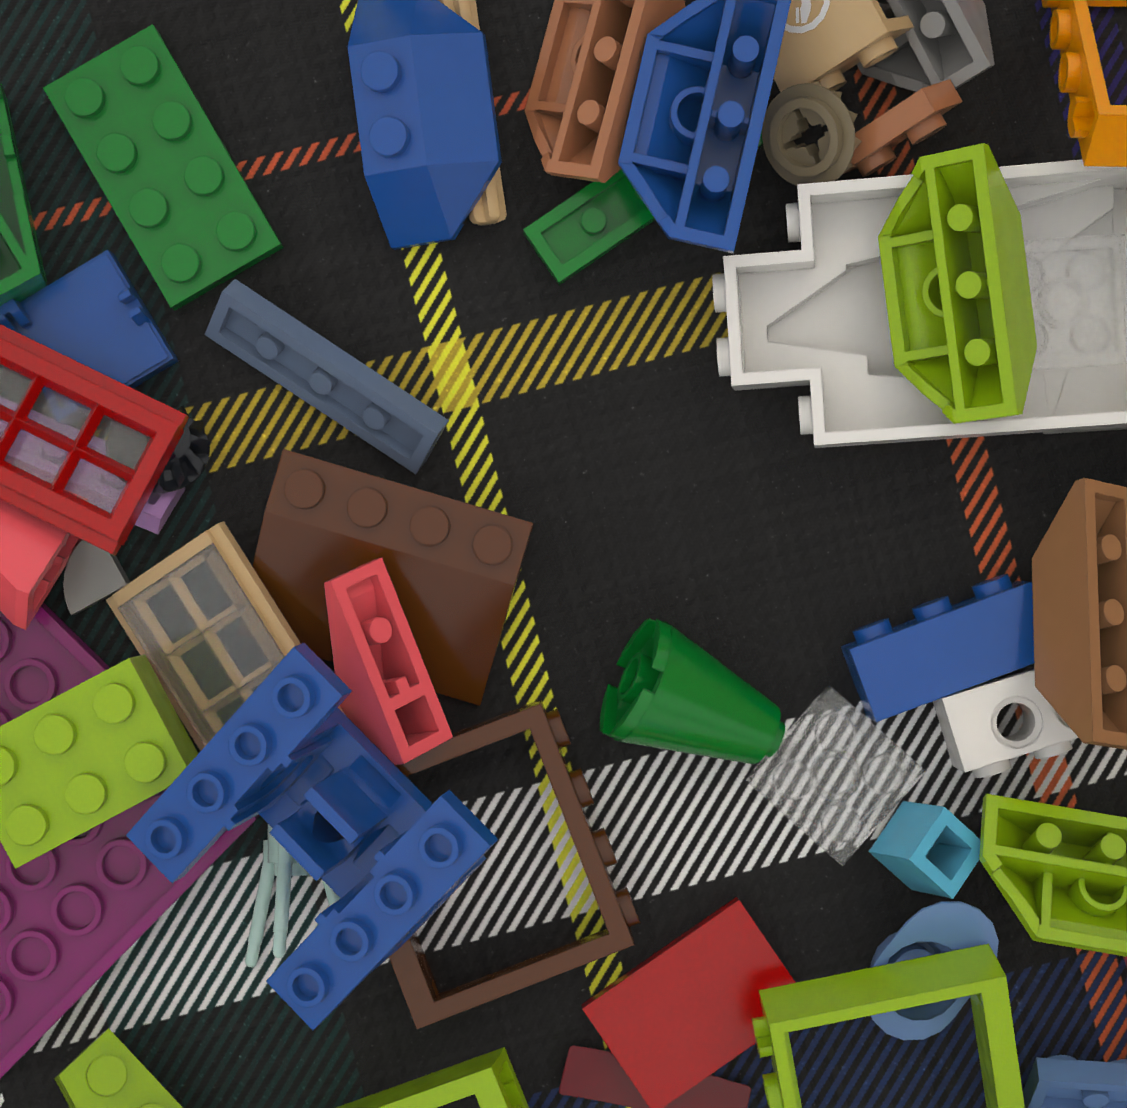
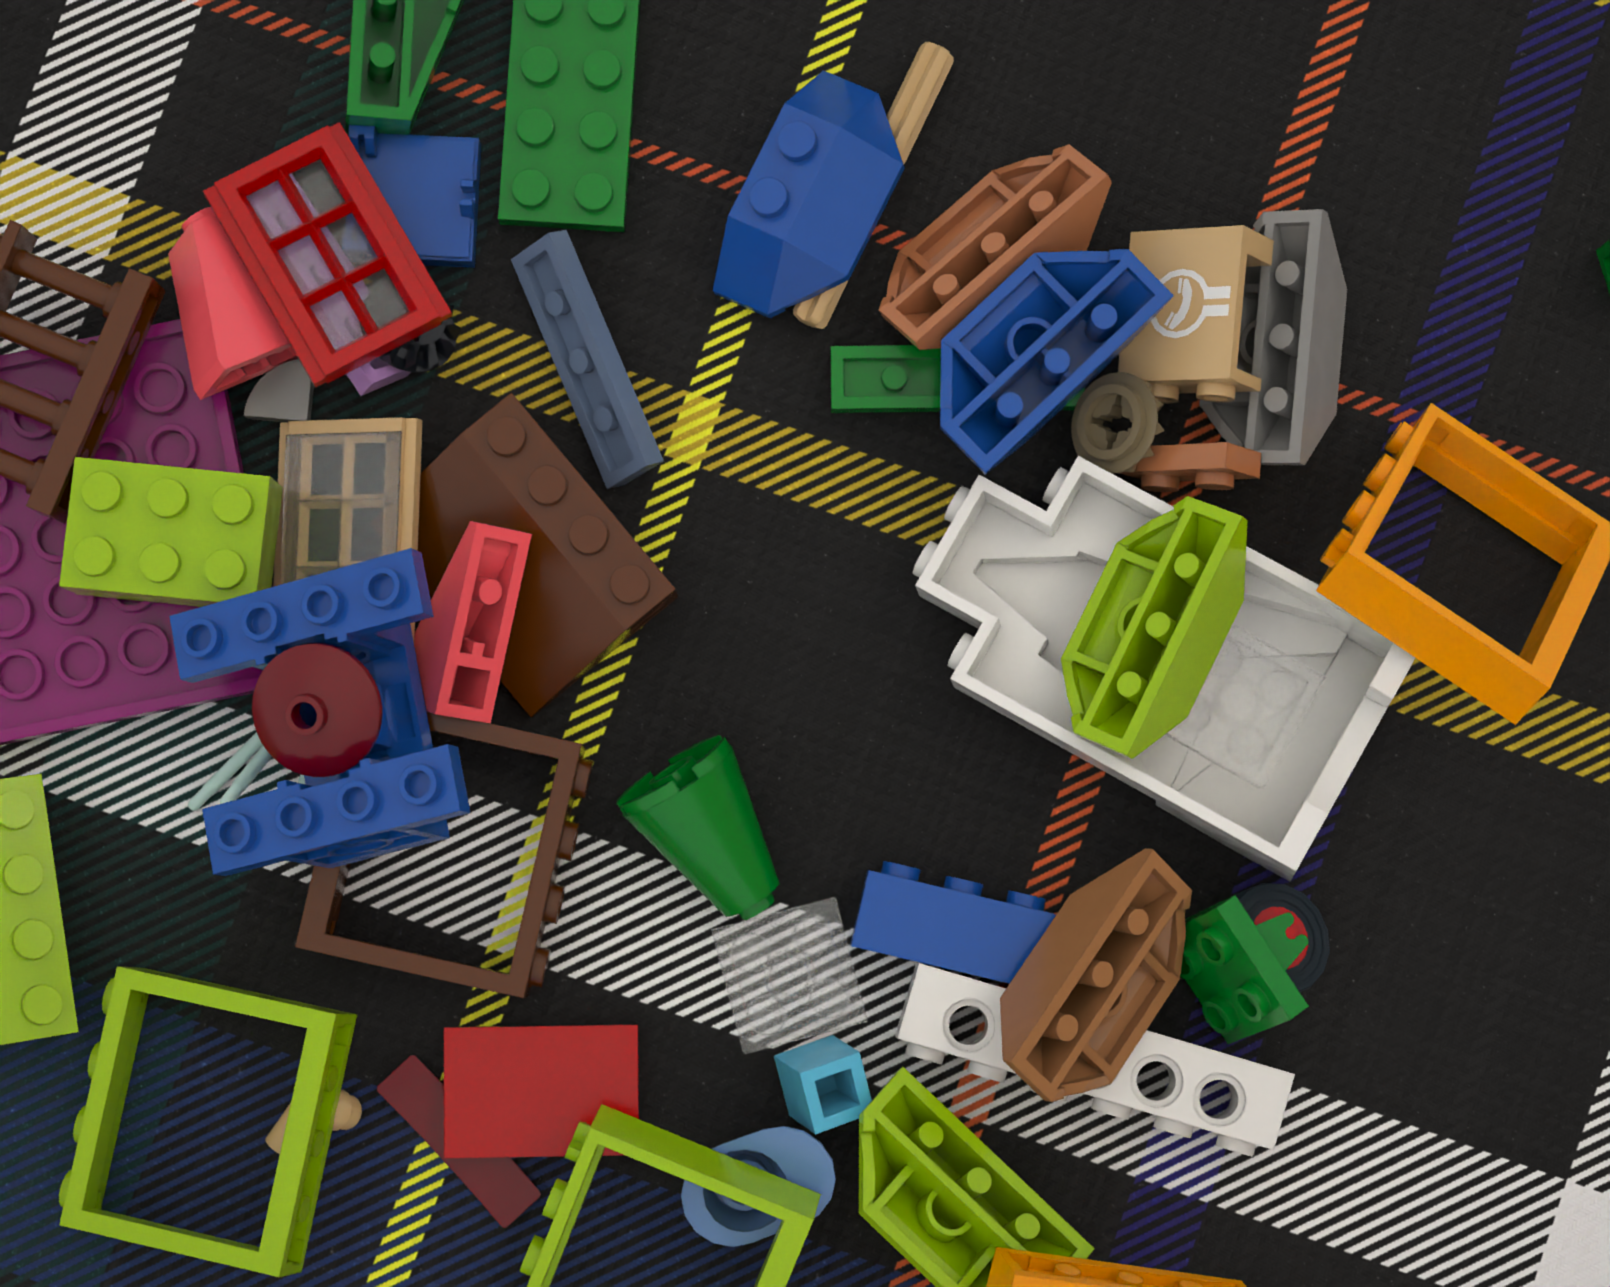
camera: 30 degrees right, 5 degrees down
(312, 809) = (344, 702): none -> dark red dish

